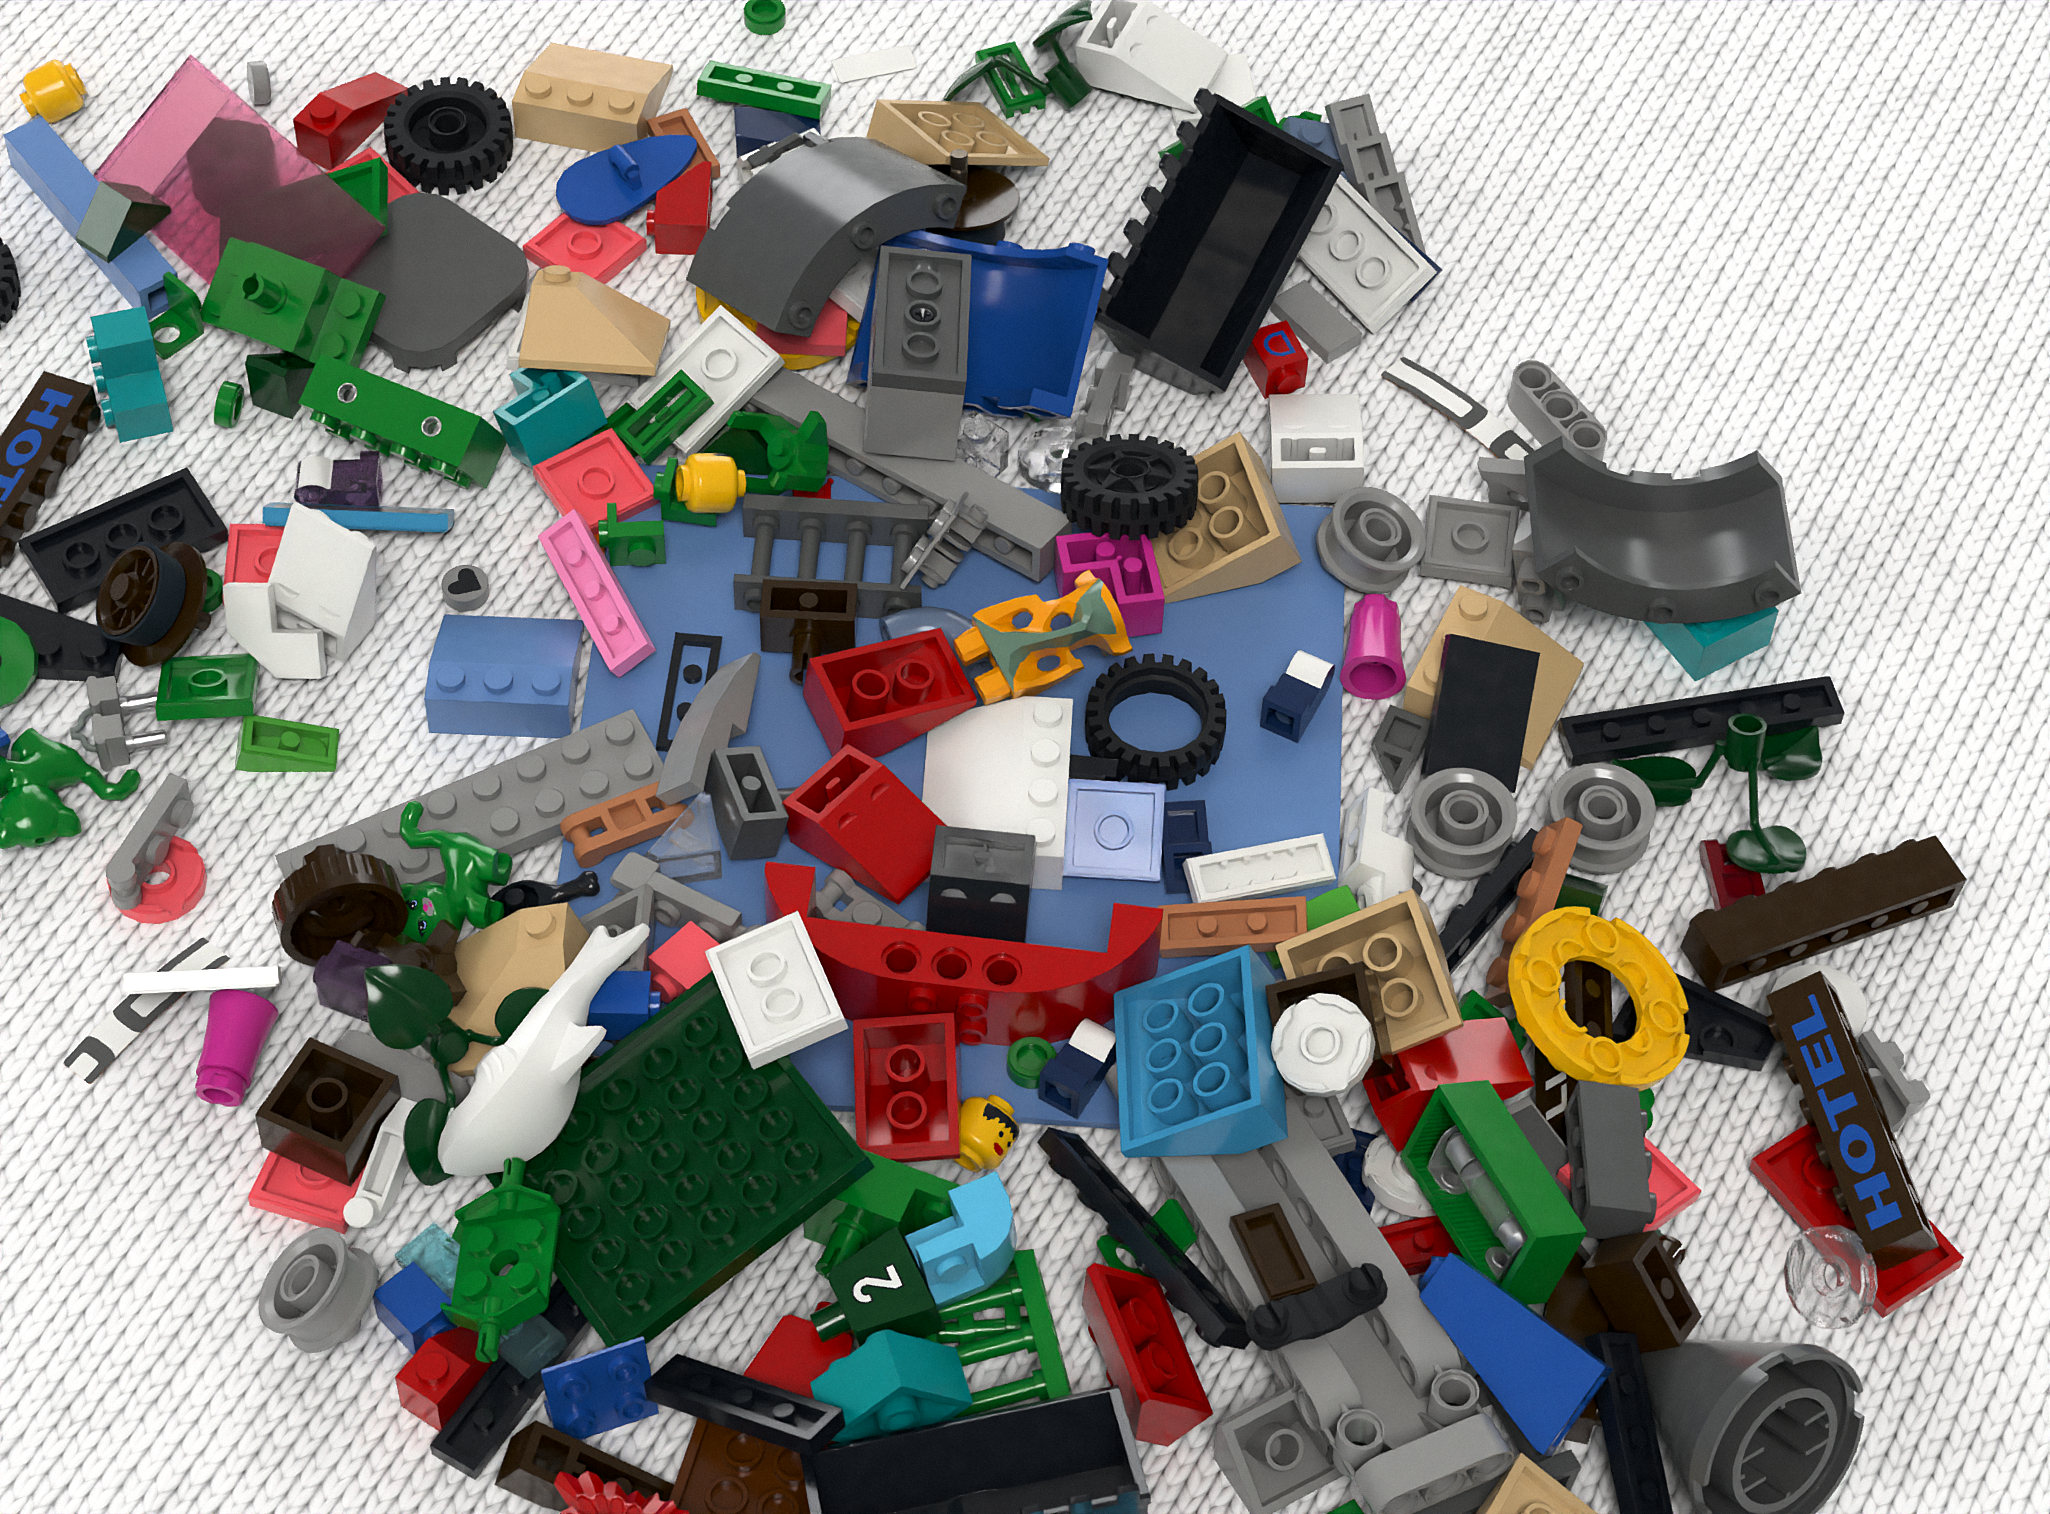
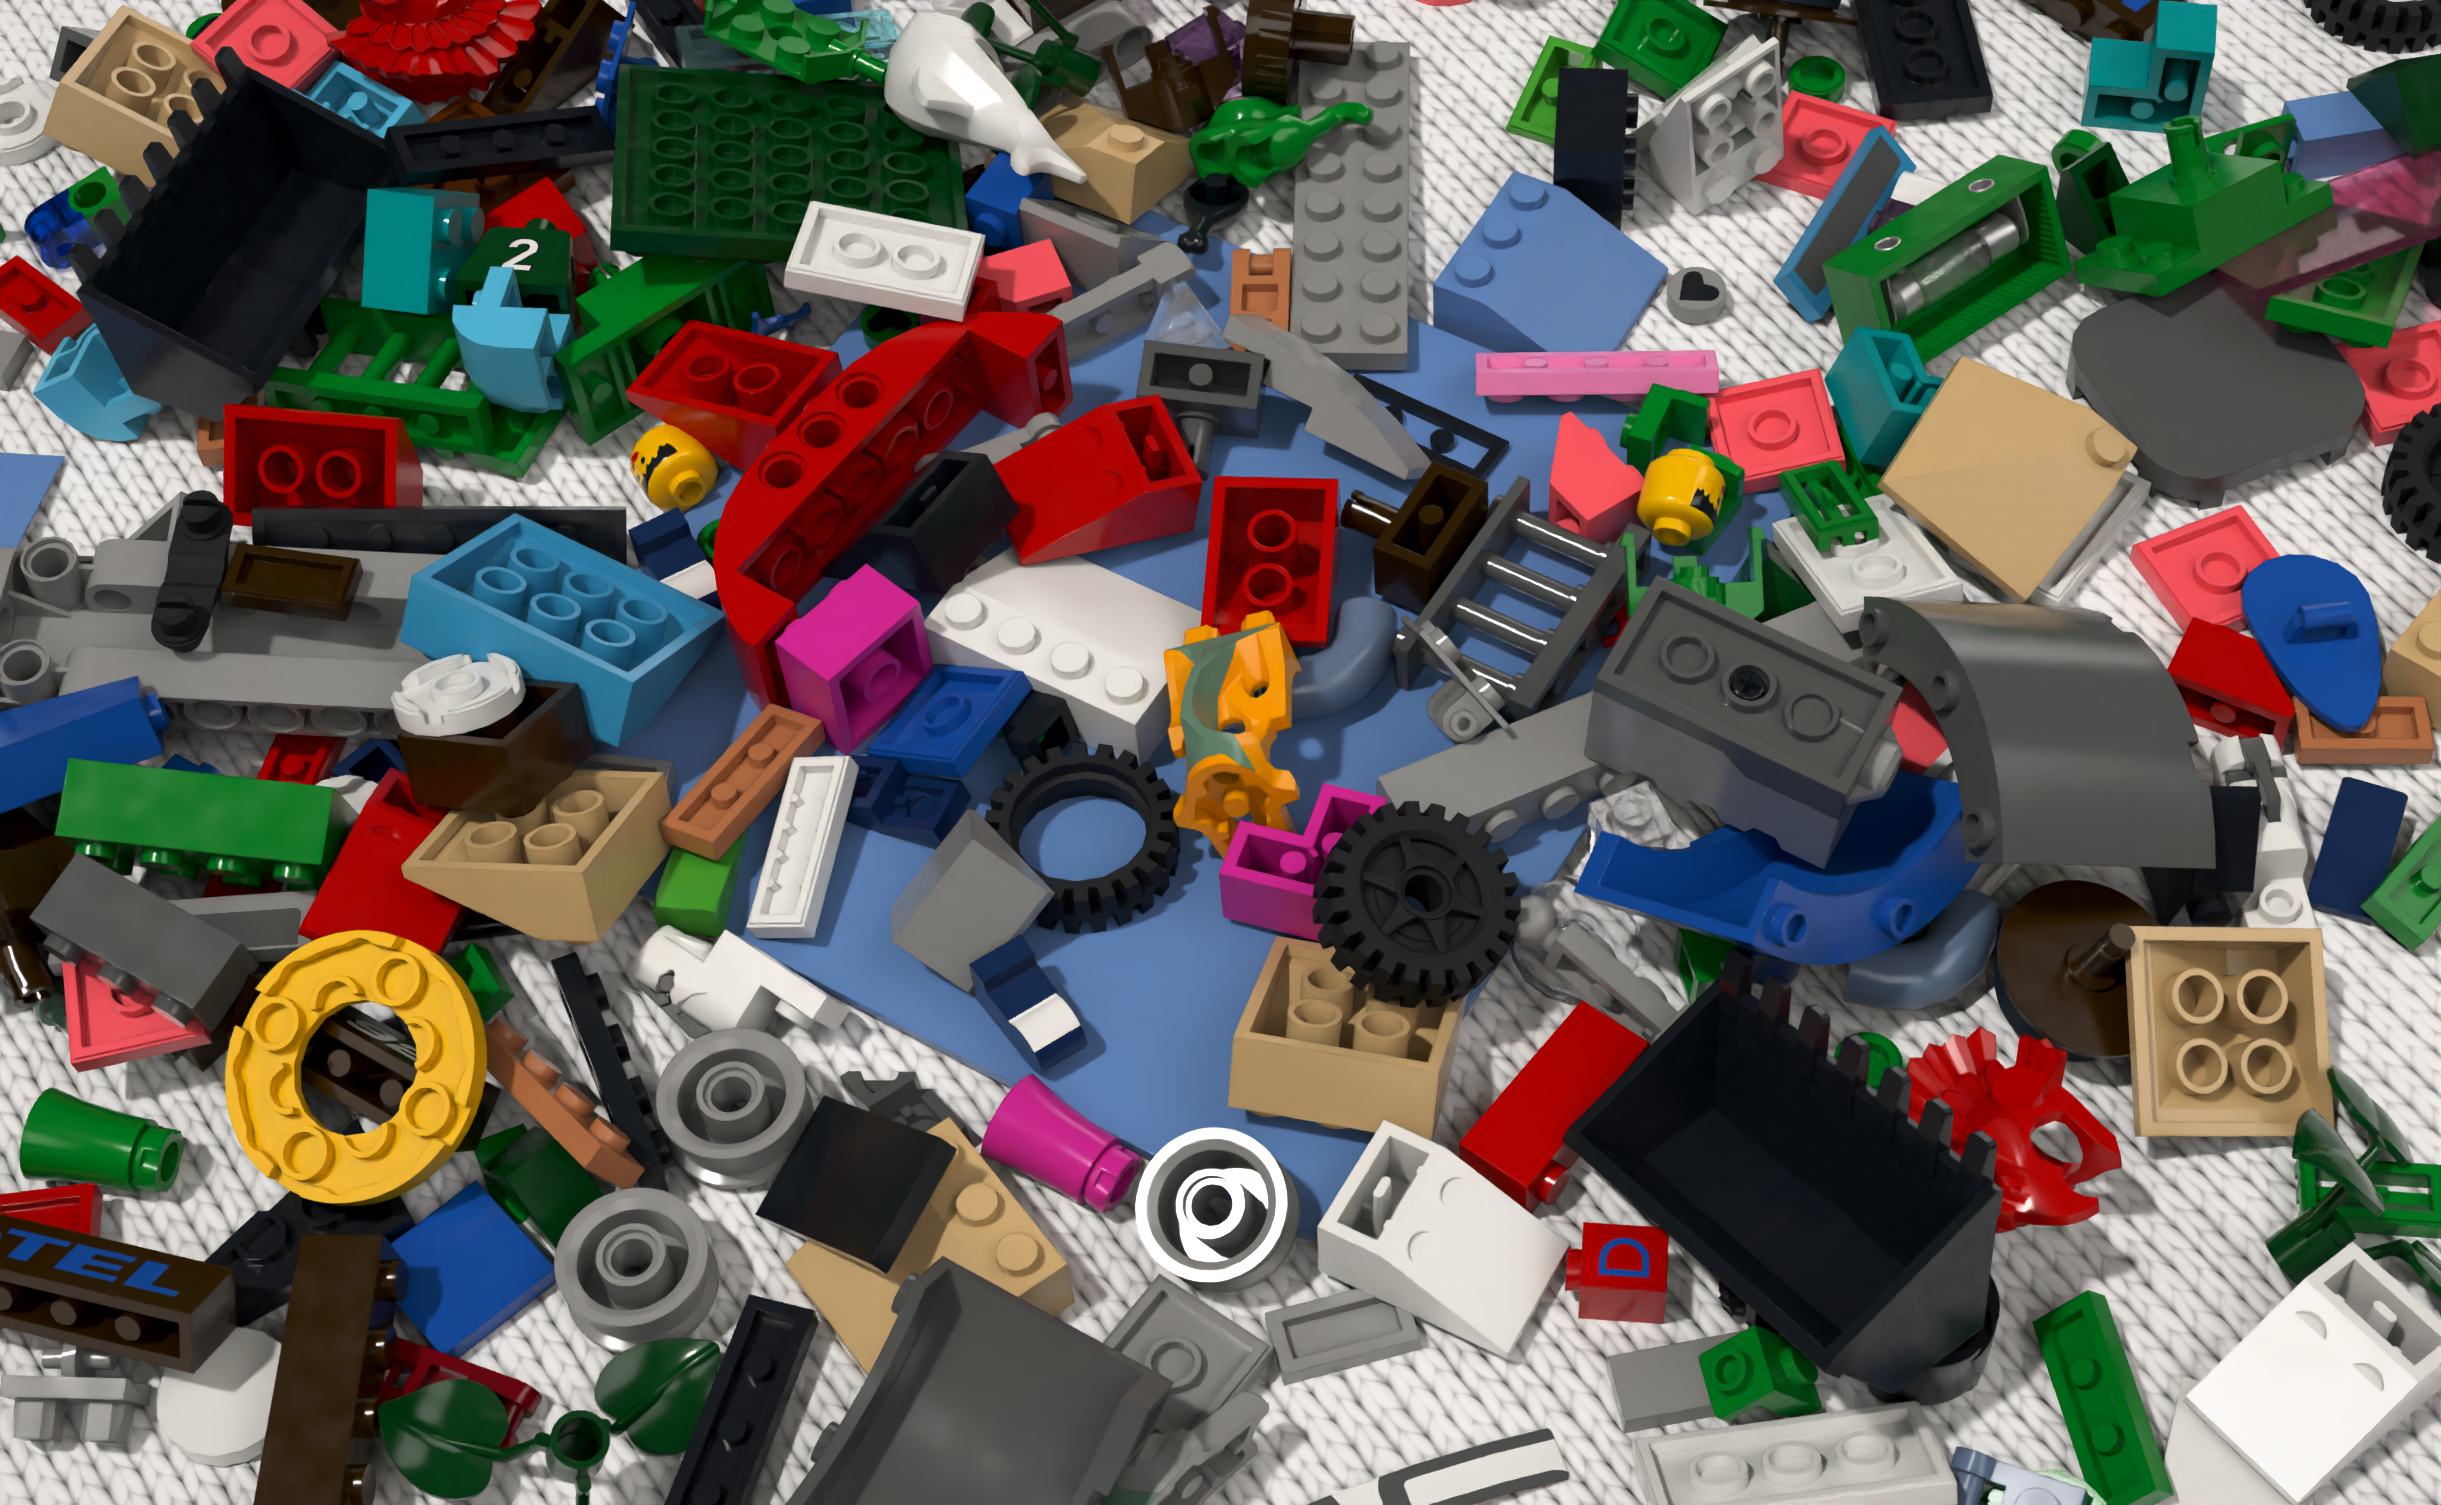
camera: 125 degrees right, 0 degrees up
(372, 668) = (1592, 139): none -> black brick
(705, 560) = (1590, 485): none -> coral slope
(1095, 876) = (855, 657): none -> dark pink brick
(1106, 191) = (2009, 1109): none -> red piece
(1188, 416) = (1522, 1132): none -> red brick
(1249, 753) = (967, 901): none -> light grey slope
(1309, 280) = (1759, 1371): none -> green bracket
(1391, 475) = (1338, 1334): none -> light grey tile
(1660, 916) = (468, 1271): none -> blue tile
(1728, 1174) = (96, 1144): none -> green plant

